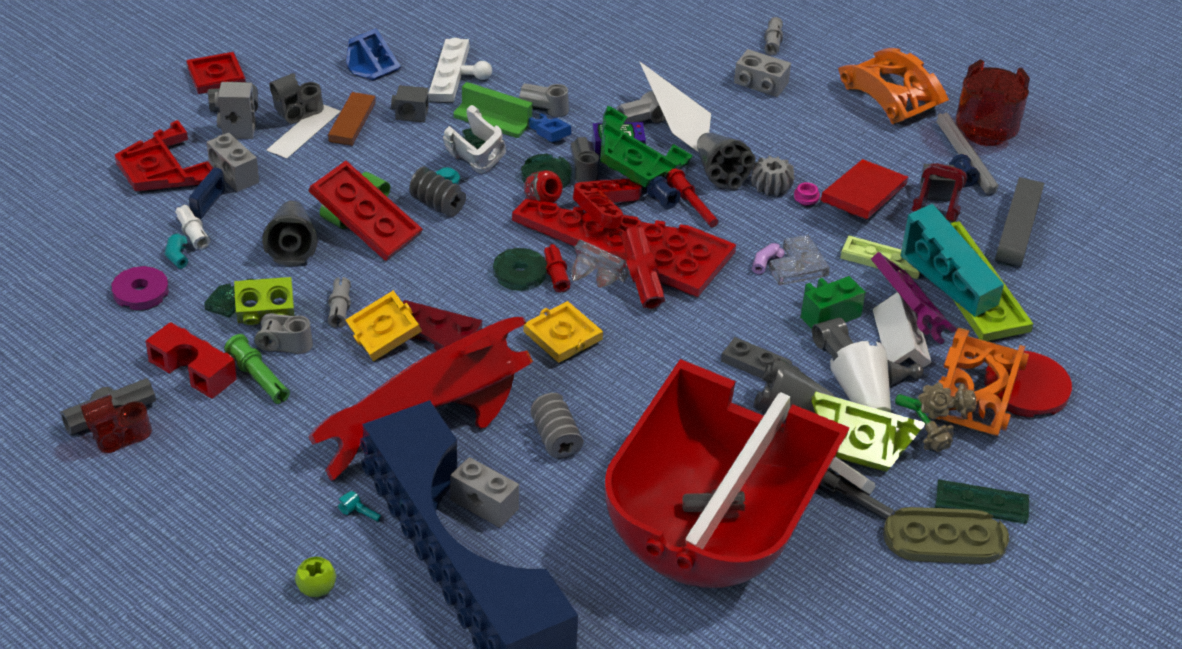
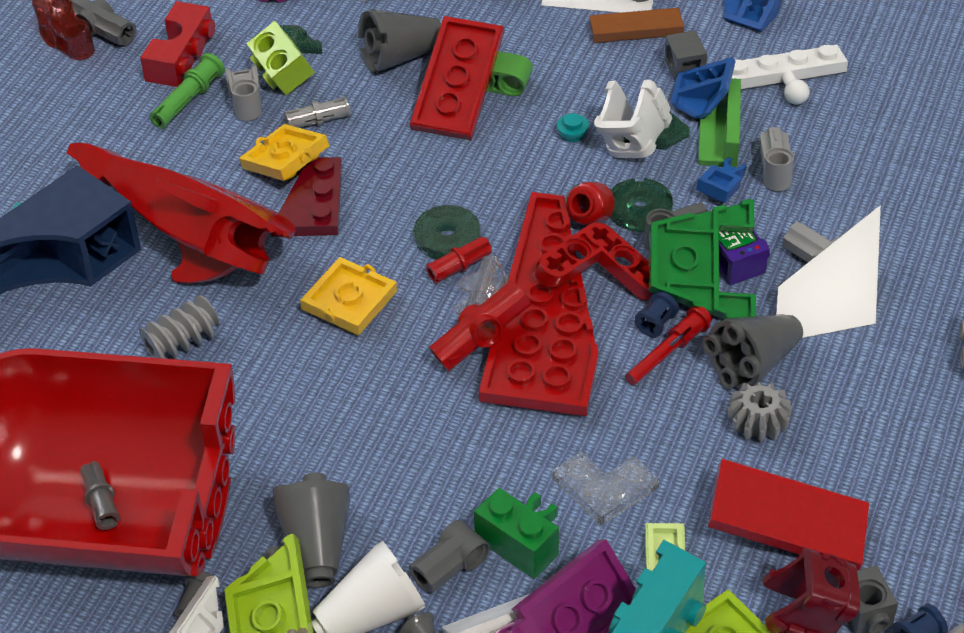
camera: 75 degrees right, 5 degrees up
(437, 192) = (531, 122): dark grey piece -> none
(452, 102) = (702, 88): none -> blue slope
(484, 492) = (59, 303): light grey brick -> none
(739, 472) = (108, 487): white tile -> none
(749, 357) = (384, 489): dark grey hinge -> none
(761, 258) = (589, 444): lavender arm -> none
(806, 194) = (751, 455): dark pink plate -> none

